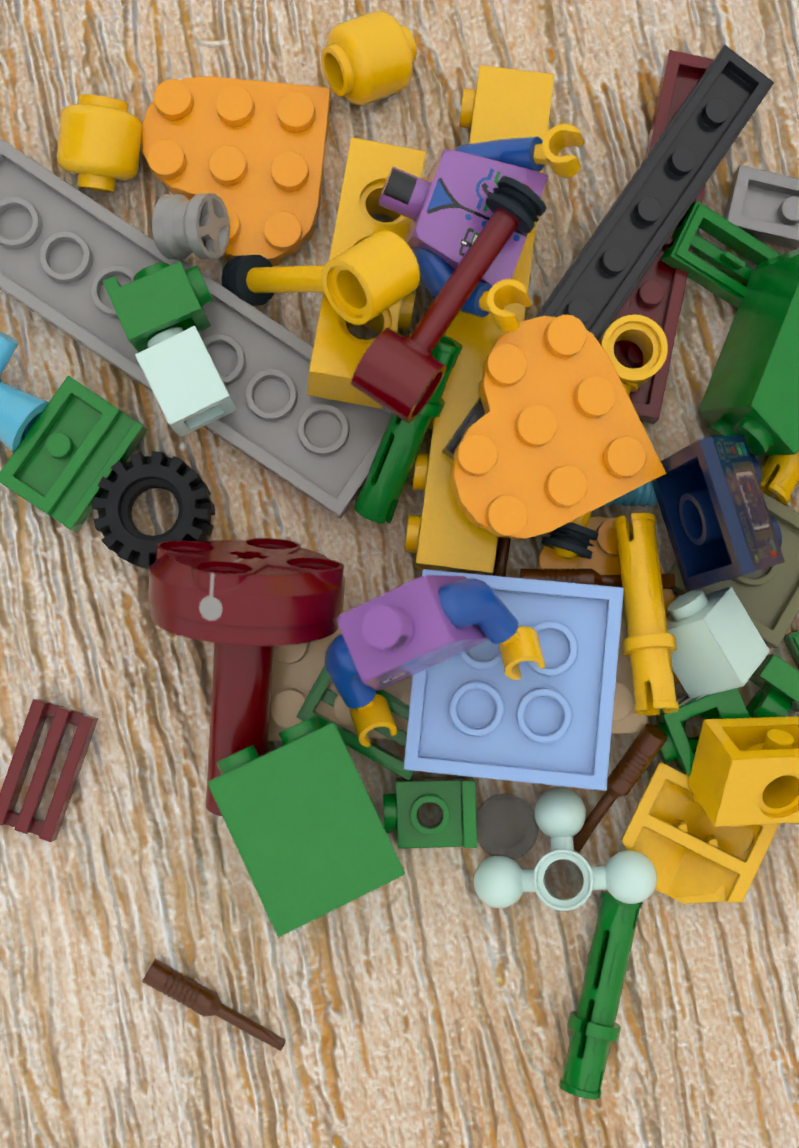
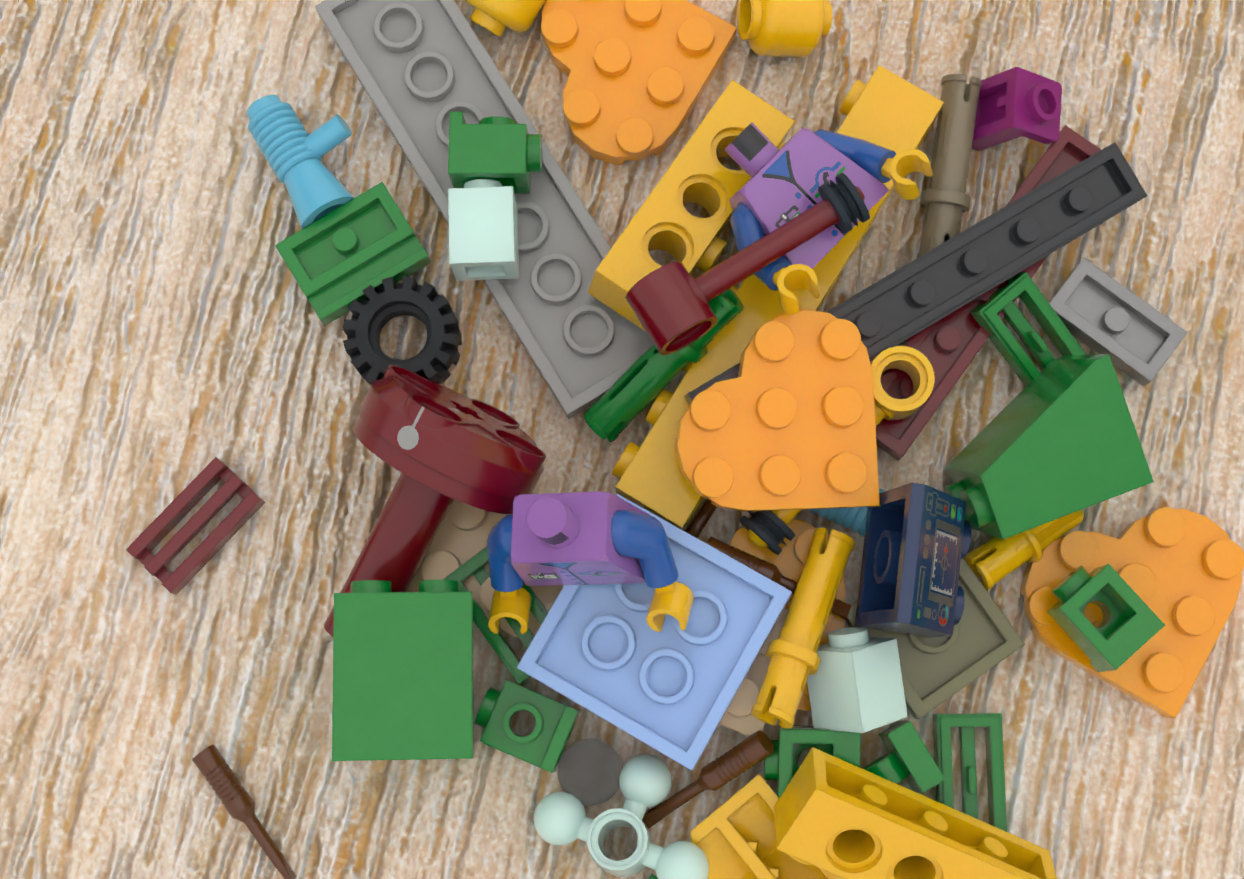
camera: 30 degrees right, 5 degrees down
(191, 226) = (551, 97): light grey wheel -> none
(355, 282) = (669, 209): yellow piece -> none
(576, 107) = (946, 190): none -> dark tan pin
(613, 55) = (1017, 106): none -> magenta bracket

